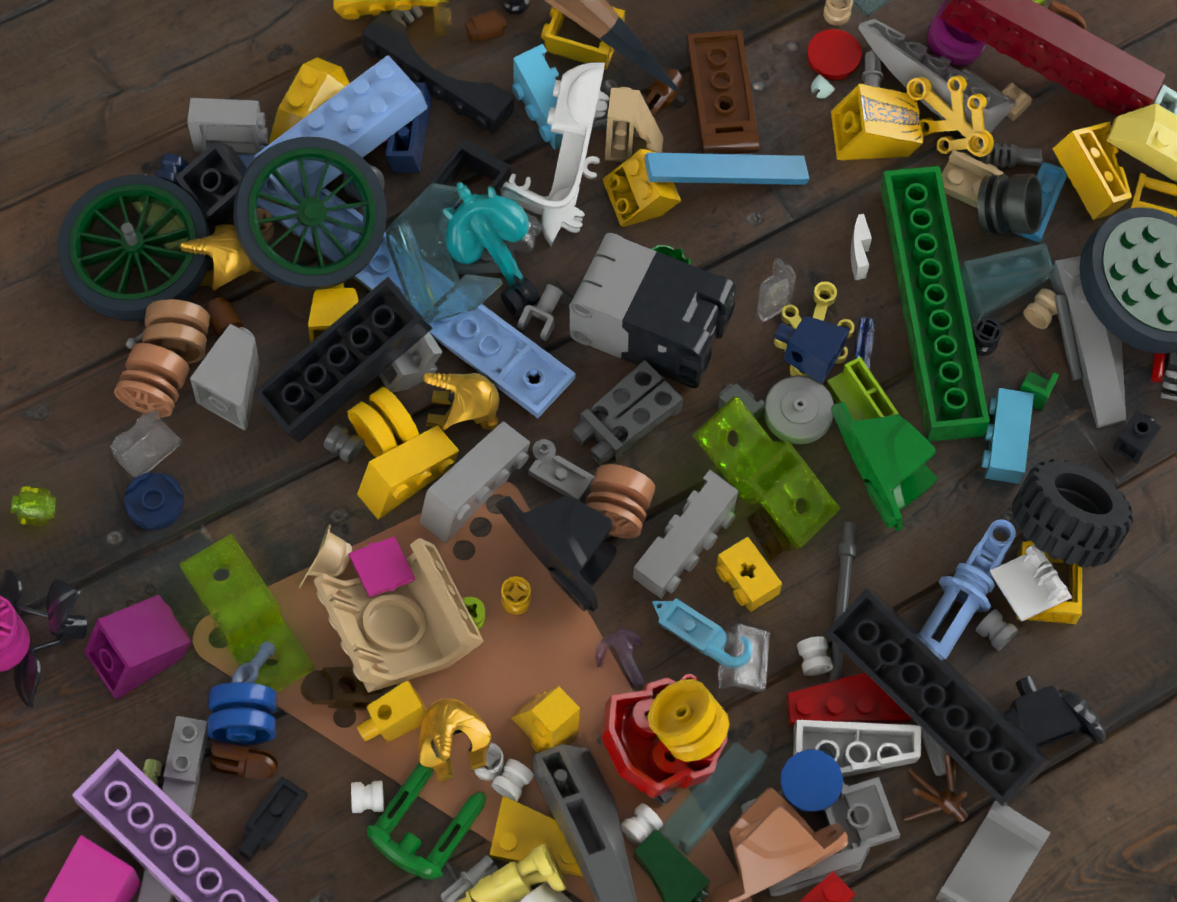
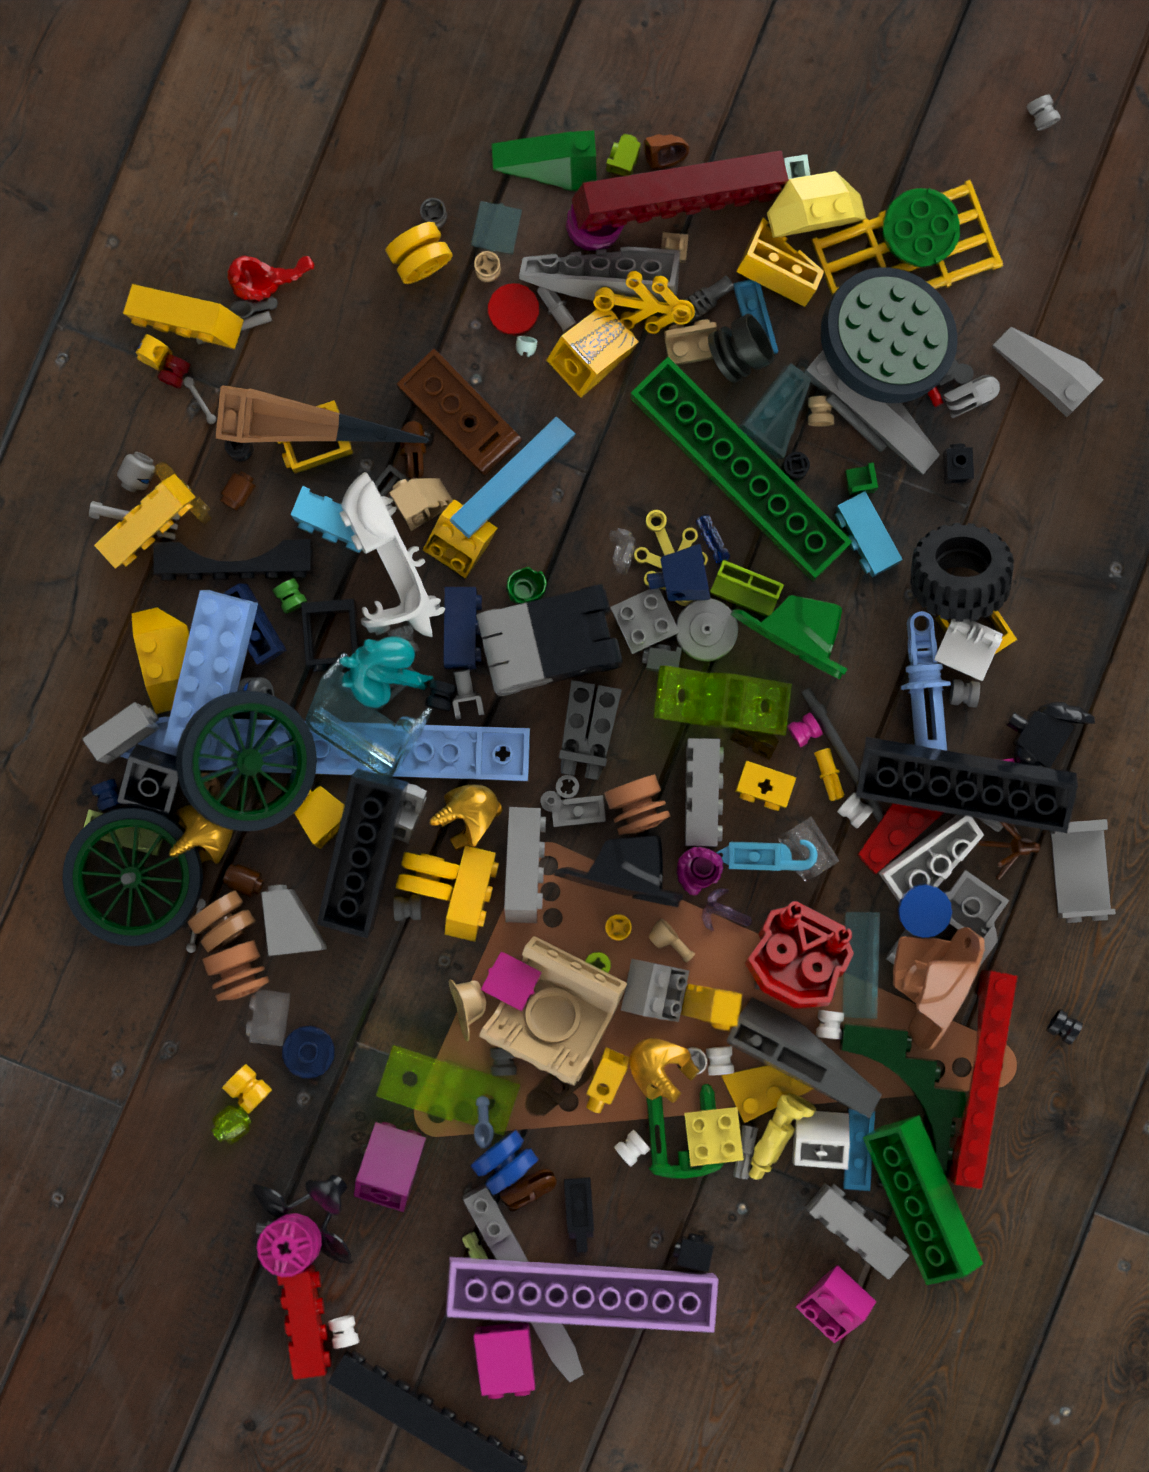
camera: 30 degrees left, 20 degrees up
(74, 486) = (247, 1088): none -> yellow wheel
(315, 632) = (503, 1062): none -> dark grey wheel
(451, 841) = (714, 1136): none -> light yellow hinge
(460, 128) = (289, 595): none -> bright green wheel
(504, 674) = (655, 990): none -> light grey slope
(552, 634) = (664, 935): none -> tan bar
(566, 441) = (575, 789): none -> light grey bush
(572, 261) = (461, 628): none -> dark blue brick
(630, 596) = (699, 869): none -> magenta hair
(688, 720) = (818, 942): yellow wheel -> none
(750, 360) = (644, 620): none -> light grey hinge
(815, 608) = (829, 774): none -> yellow axle
(821, 554) = (804, 730): none -> dark pink wheel
(860, 244) = (649, 457): white slope -> none

